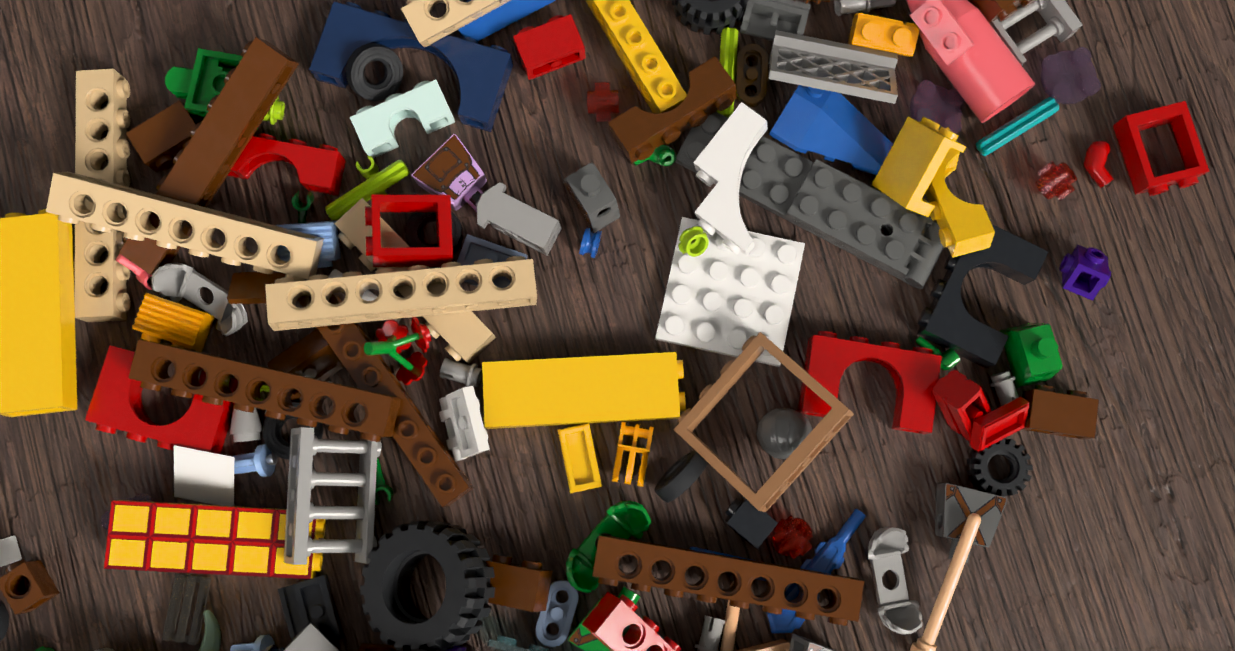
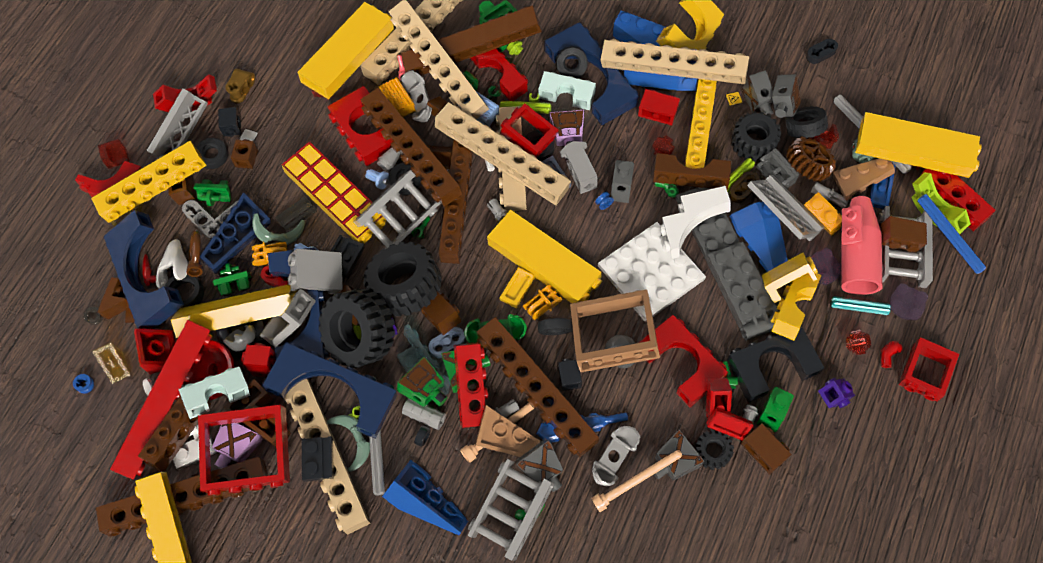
camera: 45 degrees right, 15 degrees down
(163, 136) = (459, 22): reddish brown brick -> none
(203, 476) = (353, 164): white sticker -> none
(256, 208) = (471, 79): none -> green arm
(394, 339) = (481, 174): red plant -> none
(463, 423) = (479, 229): white plate -> none
(693, 241) = (654, 235): lime plate -> none
(792, 537) = (583, 396): clear red gear -> none

